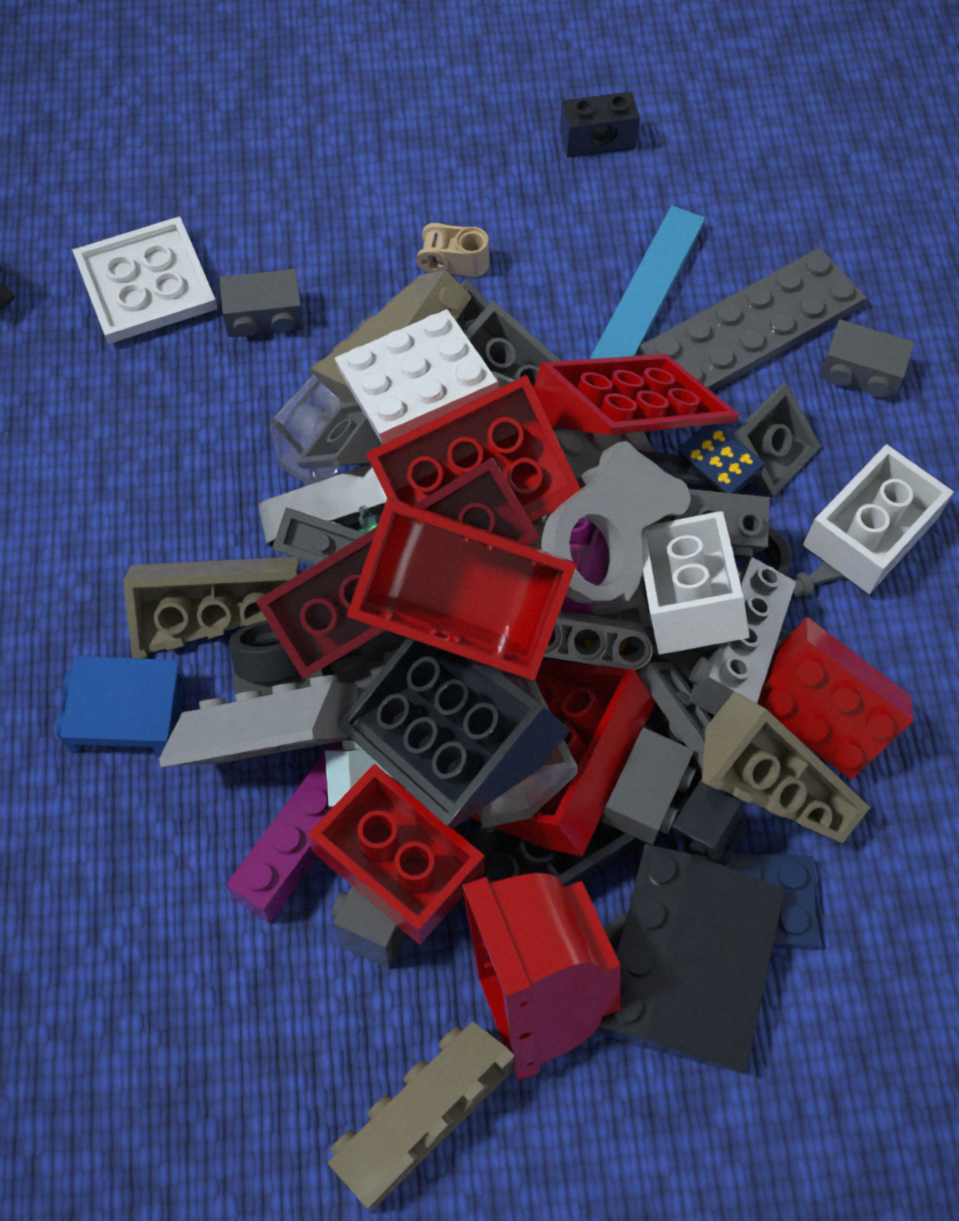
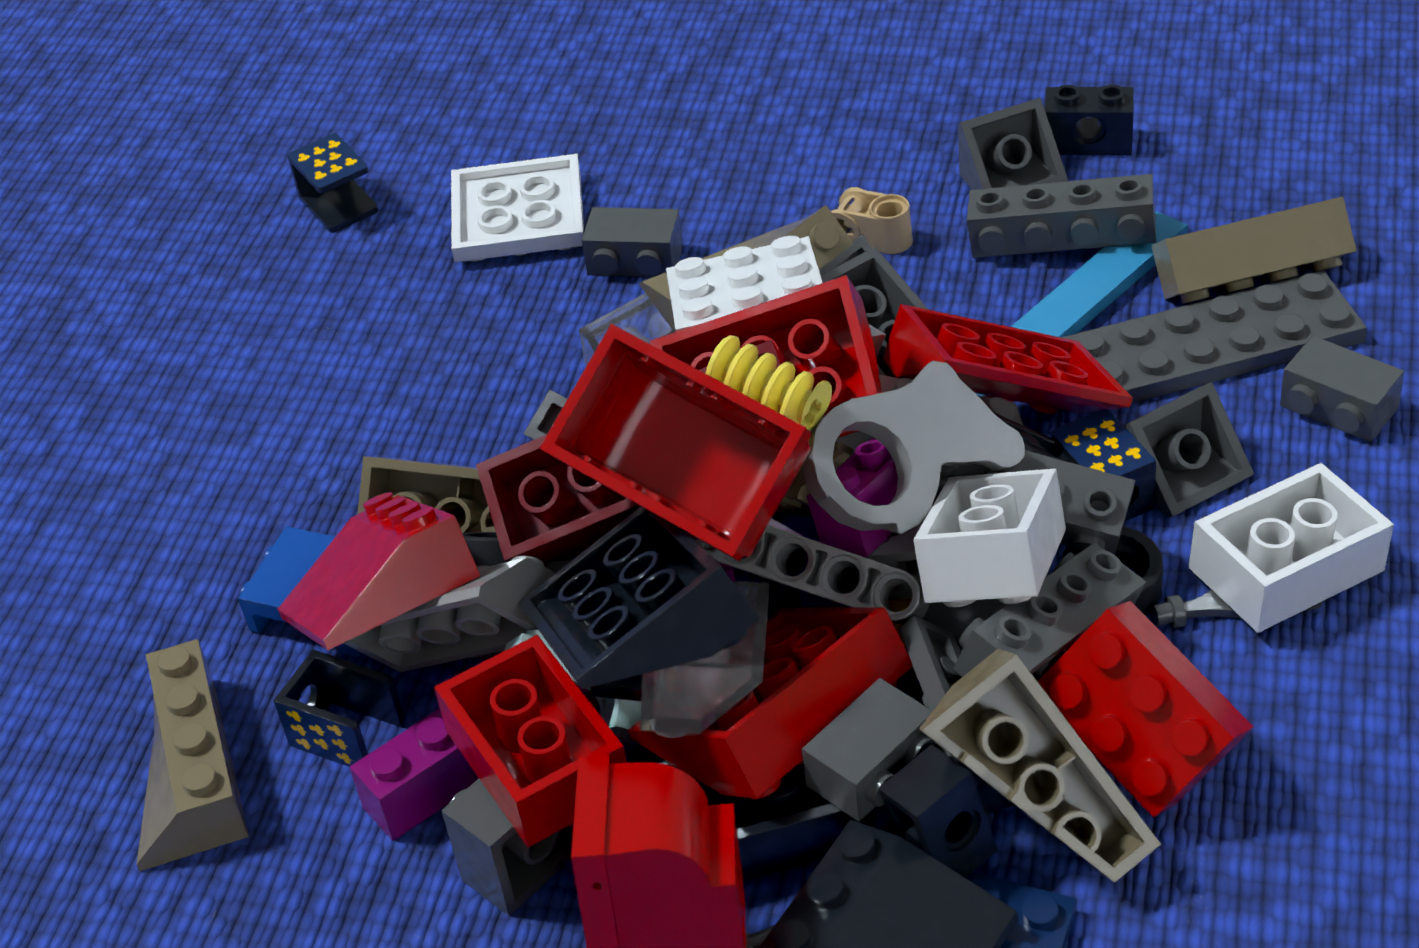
camera: 25 degrees right, 20 degrees down
(77, 909) = (191, 775): none -> dark tan wedge
(189, 797) = (341, 684): none -> black piece
(196, 715) = (379, 569): none -> slope
(506, 511) = (769, 385): none -> light yellow piece
(547, 169) = (1009, 148): none -> dark grey slope
(613, 228) = (1062, 216): none -> dark grey brick
(766, 237) = (1254, 248): none -> dark tan wedge

